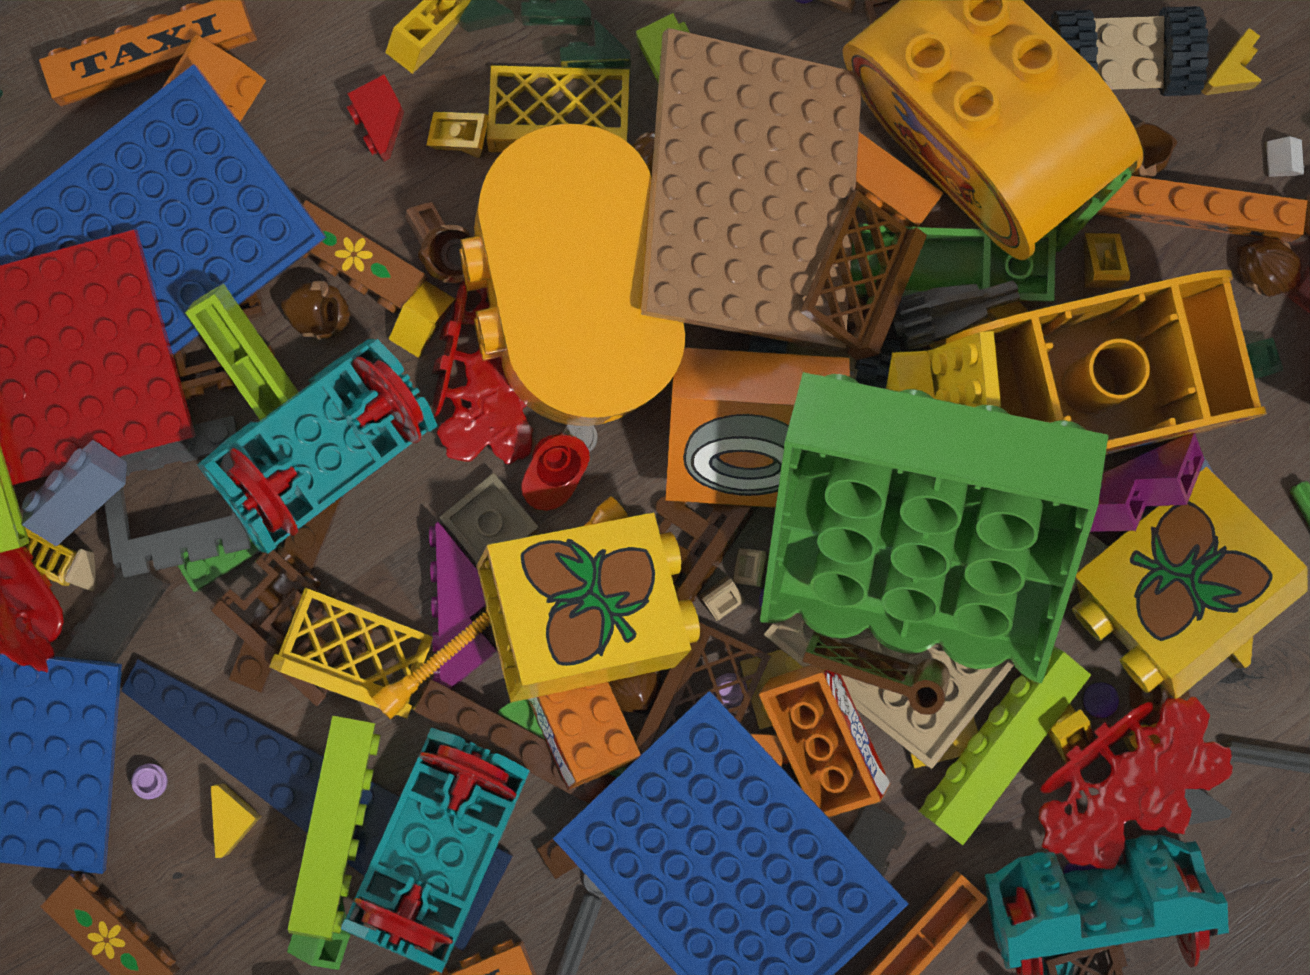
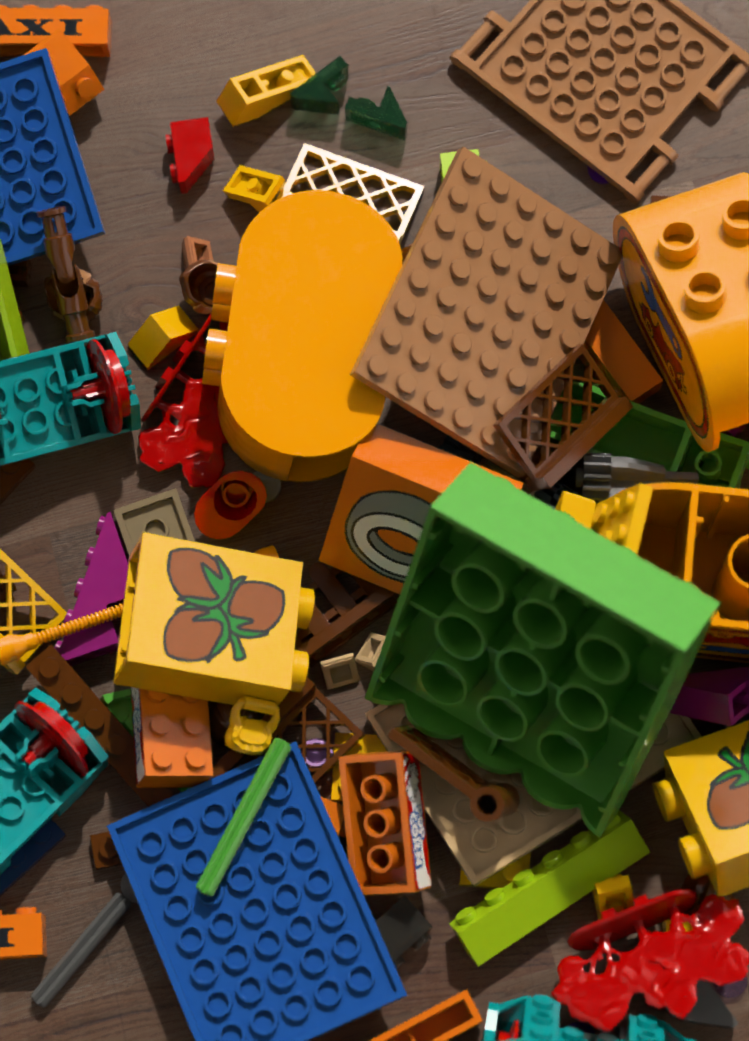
camera: 20 degrees right, 10 degrees down
(290, 276) = (60, 249): none -> reddish brown piece
(363, 262) = (129, 269): dark orange brick -> none
(605, 54) = (406, 165): clear green slope -> none
(664, 701) = (249, 734): none -> yellow piece
(686, 785) = (243, 817): none -> bright green axle
(1100, 700) = (653, 882): dark purple piece -> none

